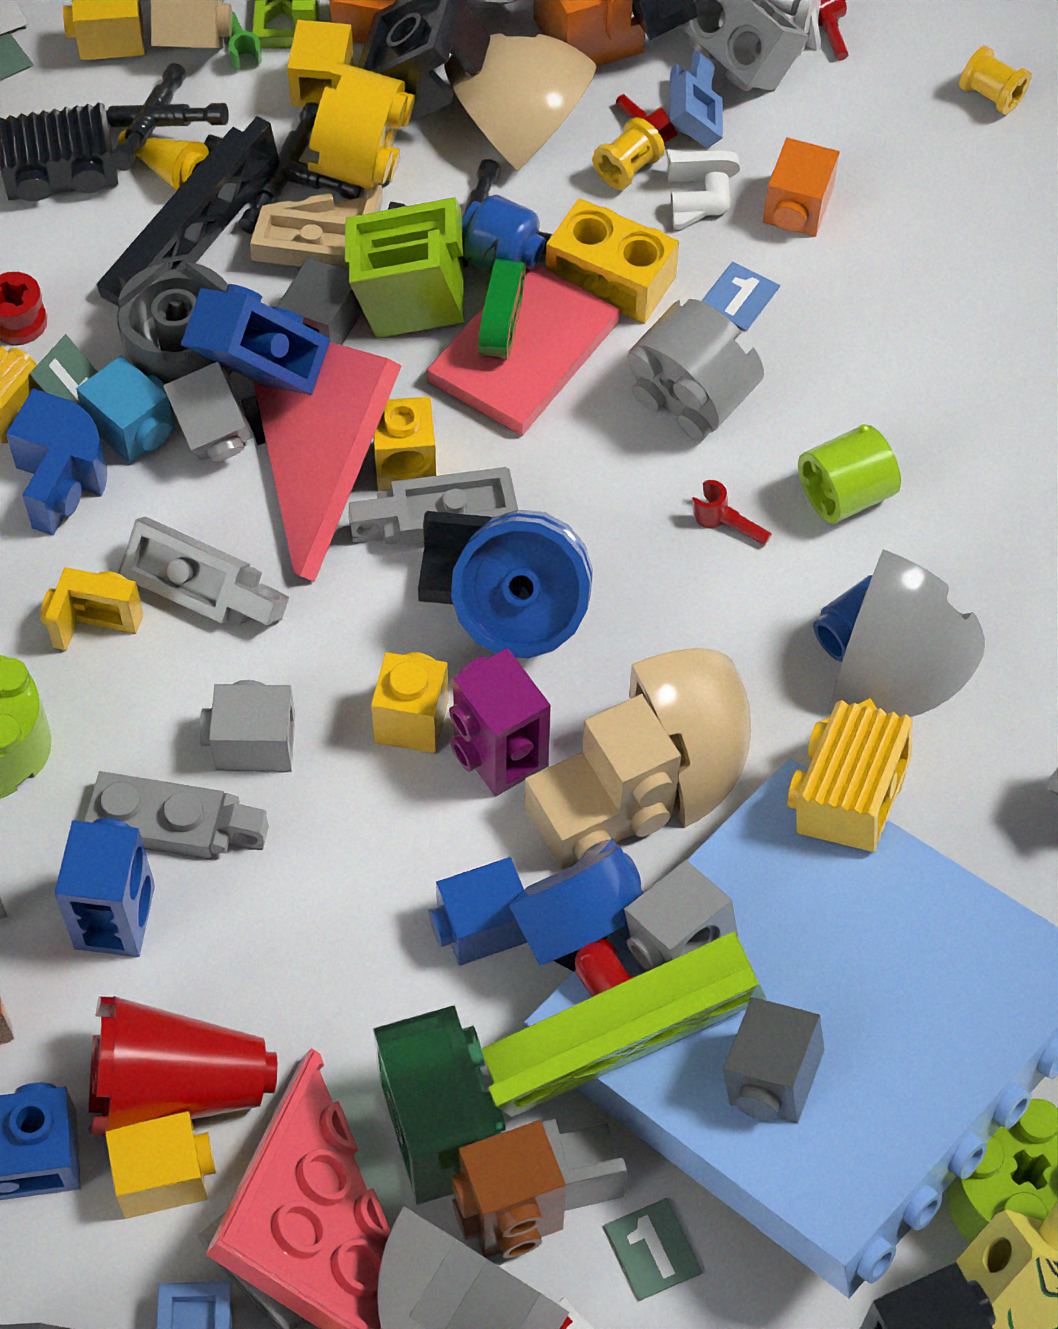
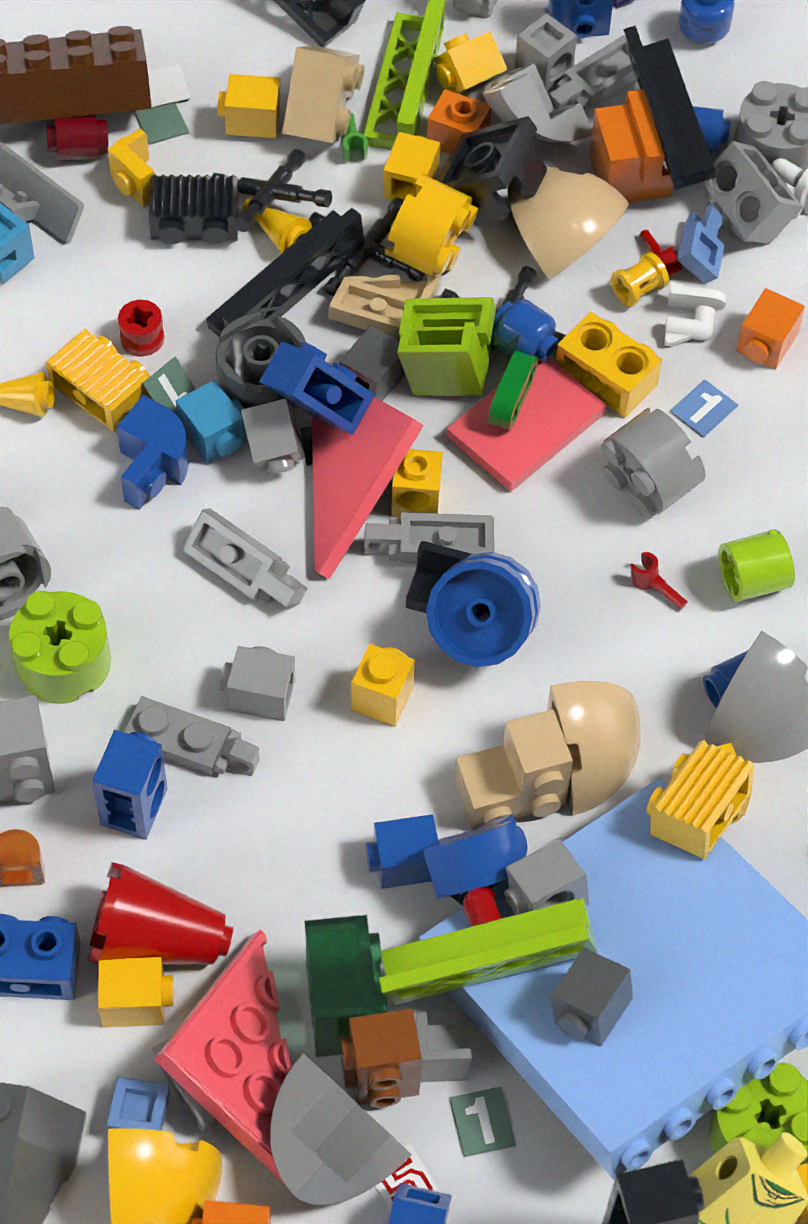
camera: 10 degrees right, 0 degrees up
(92, 599) = (159, 564): yellow bracket -> none
(499, 721) = (445, 711): magenta brick -> none

